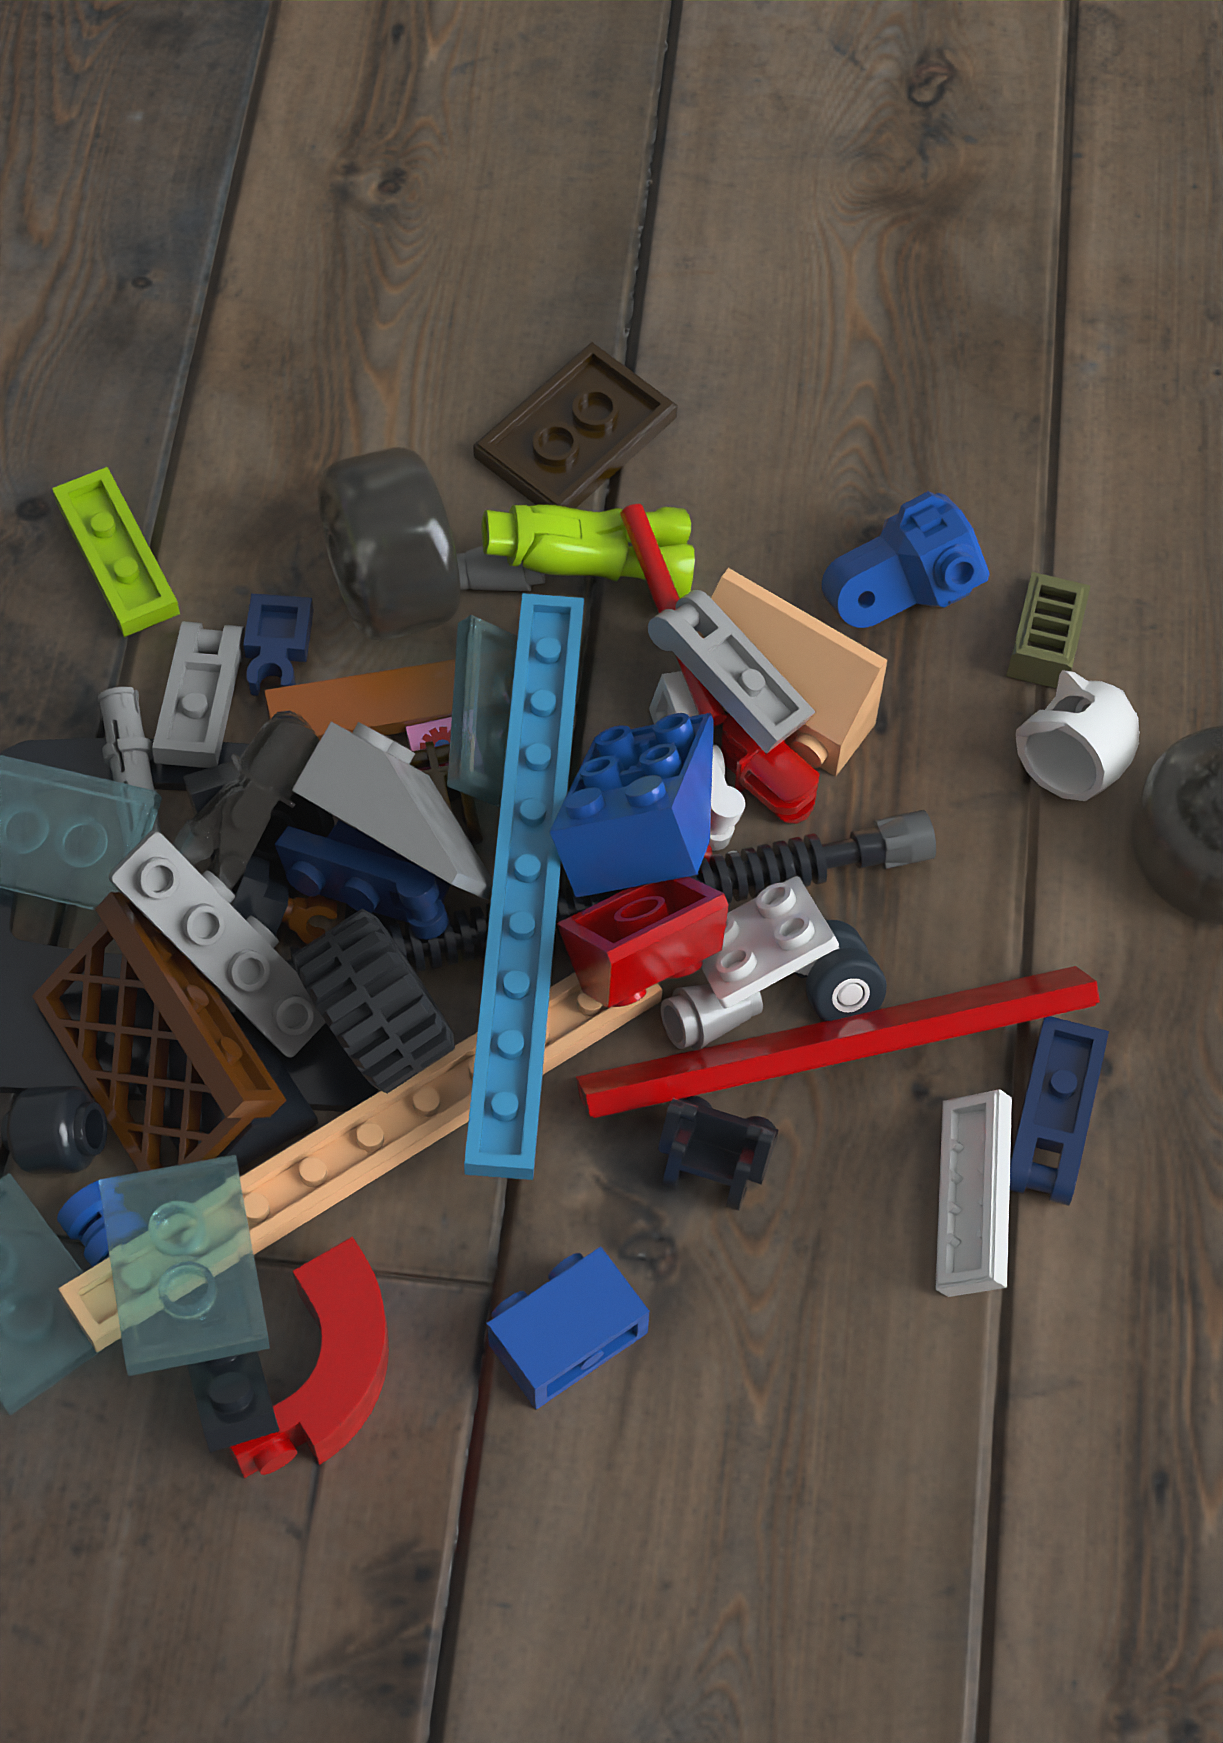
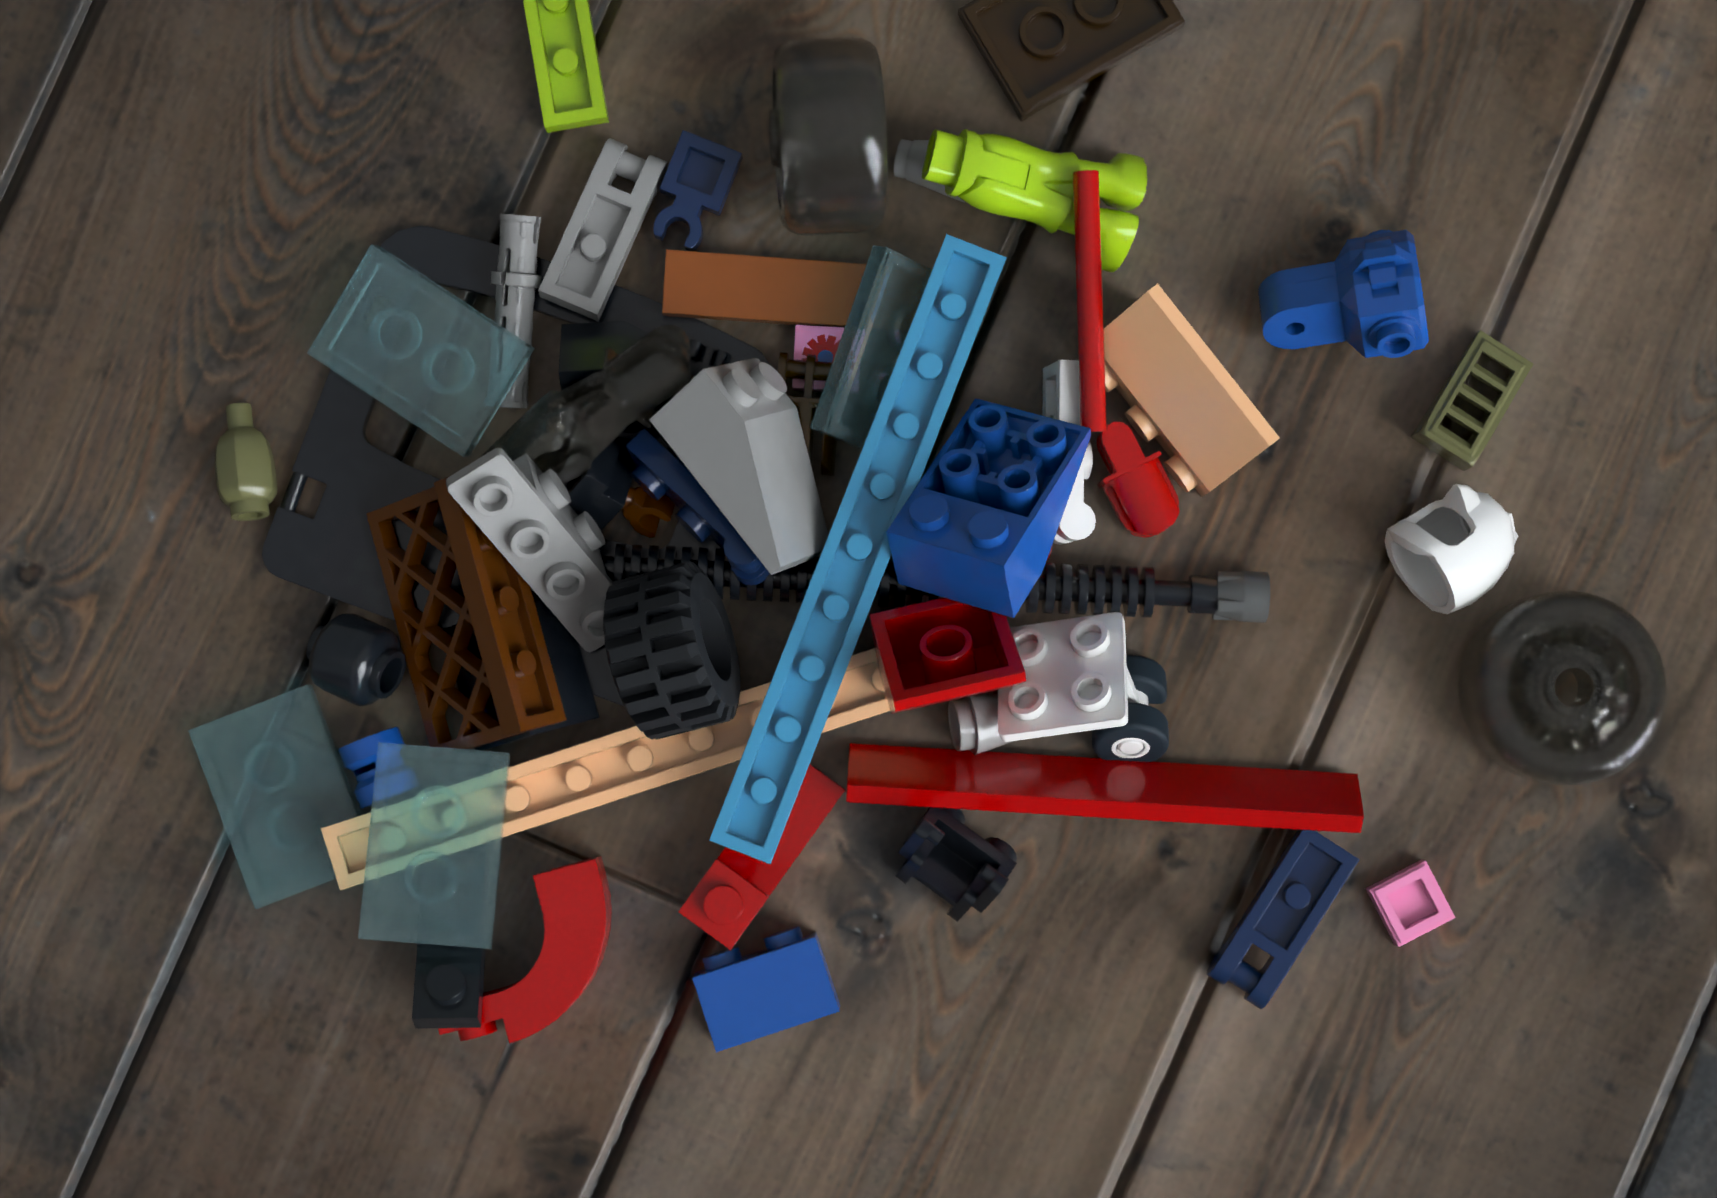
camera: 20 degrees right, 25 degrees up
(516, 1213) = (740, 884): none -> red slope
(731, 669) = (1125, 392): light grey plate -> none
(974, 1194) = (1175, 976): white plate -> none
(1174, 1067) = (1410, 903): none -> bright pink tile

